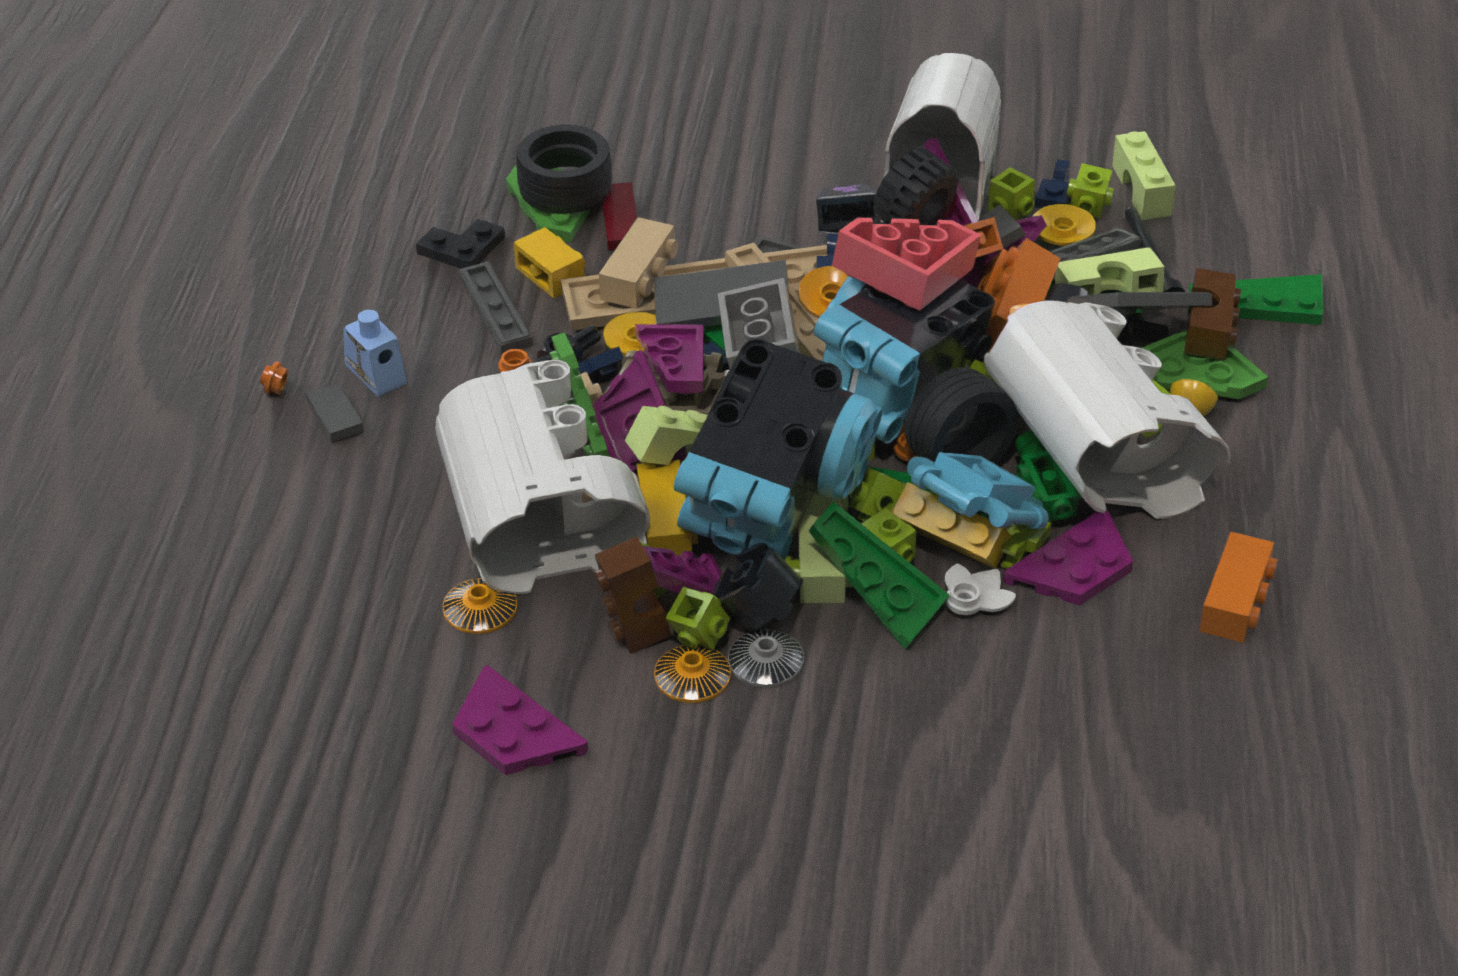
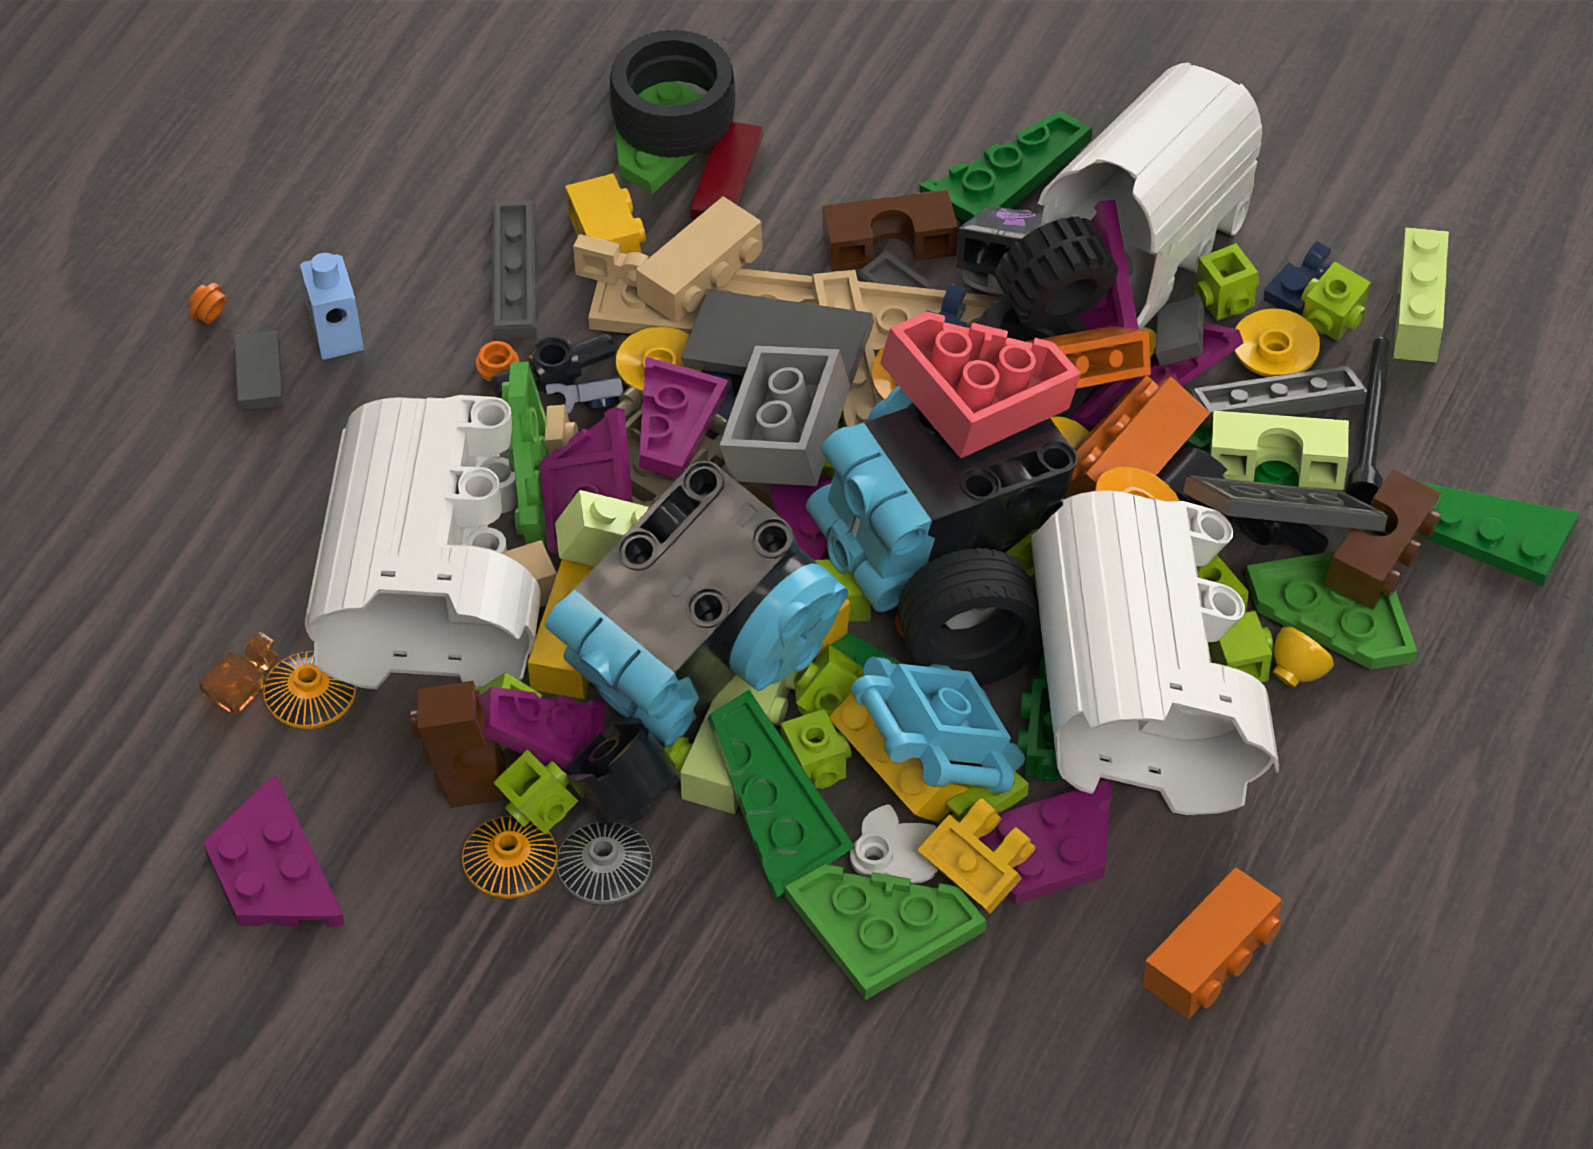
camera: 20 degrees right, 10 degrees up
(423, 612) = (239, 680): none -> clear orange plate
(463, 249) = (513, 172): black plate -> none
(567, 278) = (603, 261): none -> tan plate
(777, 210) = (919, 219): none -> reddish brown arch
(818, 170) = (1012, 169): none -> green wing
(995, 640) = (882, 923): none -> bright green plate
(1042, 581) = (969, 863): none -> yellow plate

